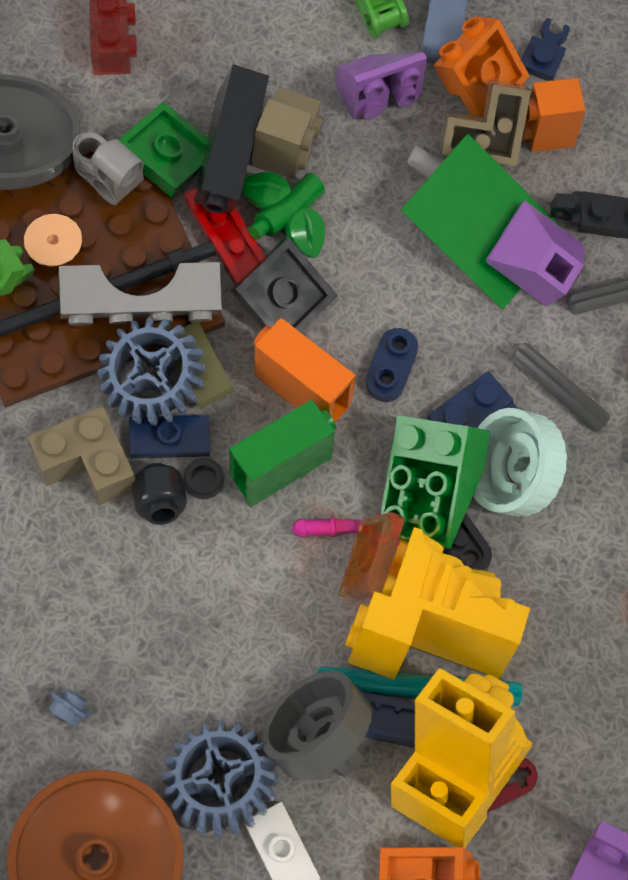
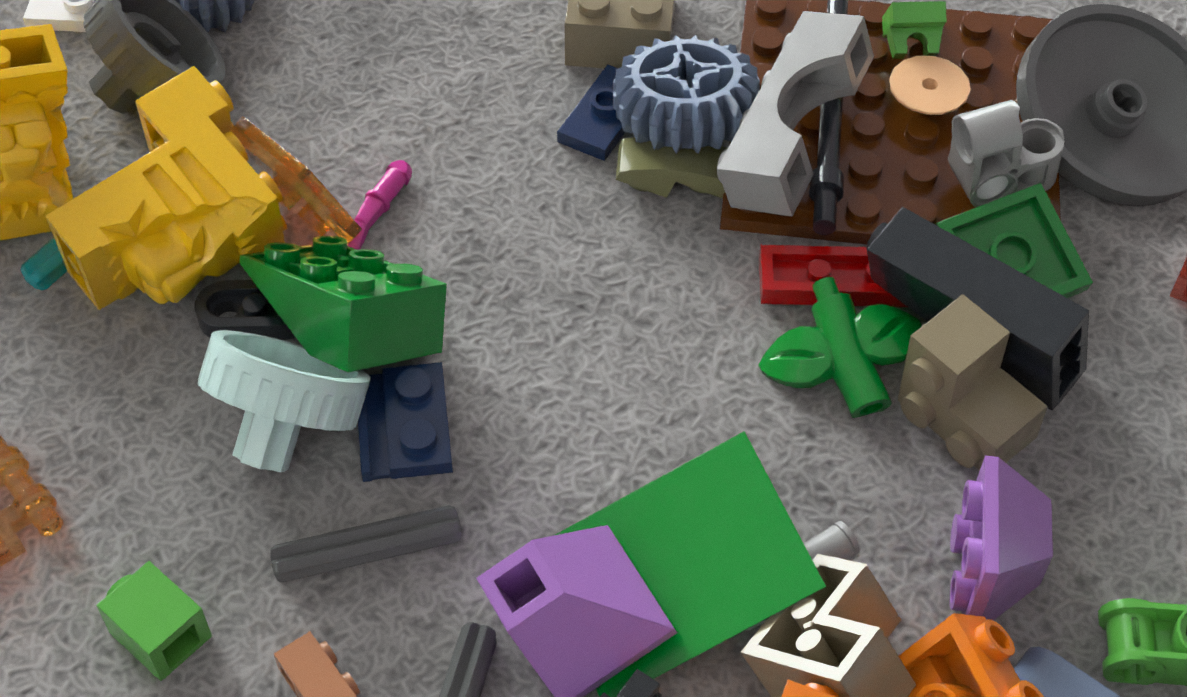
camera: 125 degrees right, 15 degrees down
(159, 493) = (538, 62): black head -> none
(203, 478) = (531, 120): black tile -> none
(282, 452) = (491, 164): green brick -> none
(284, 288) = (716, 283): black plate -> none
(301, 370) = (579, 228): orange brick -> none
(391, 363) = (540, 362): dark blue plate -> none
(391, 720) = (108, 146): dark blue plate -> none

